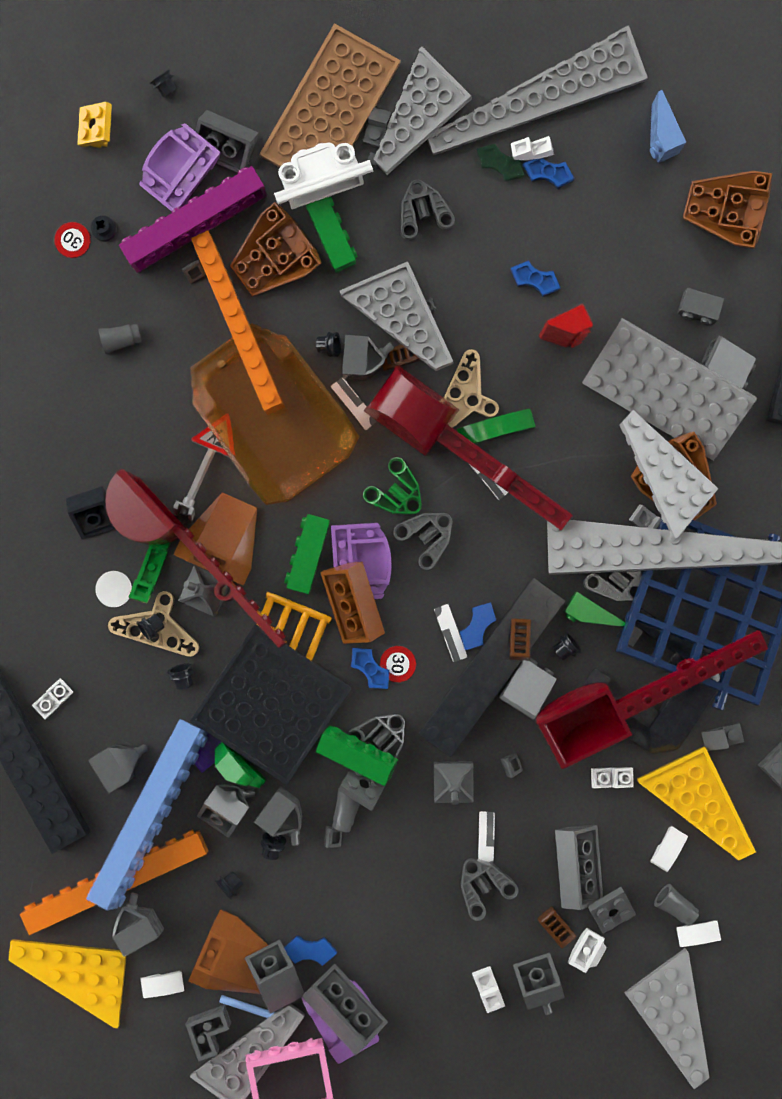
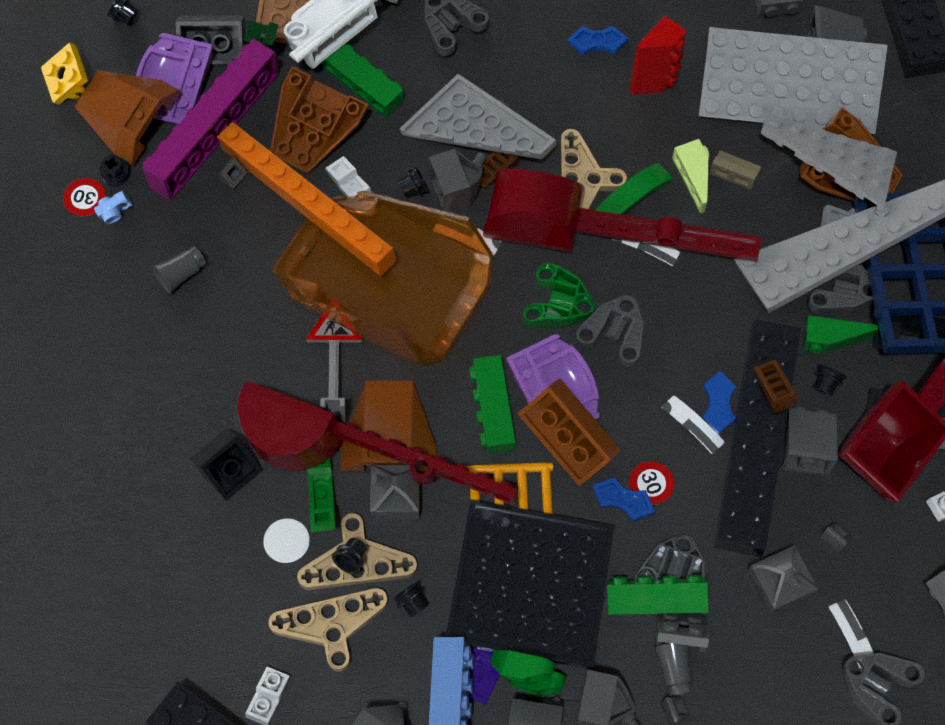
camera: 25 degrees left, 20 degrees down
(86, 261) = (110, 208): none -> light blue plate
(109, 664) = (317, 628): none -> tan beam
(130, 177) = (122, 108): none -> dark orange wedge
(261, 162) = (262, 33): none -> dark green slope
(281, 316) = (346, 177): none -> white slope
(555, 425) = (692, 165): none -> yellowish green slope
(587, 441) = (735, 170): none -> dark tan panel

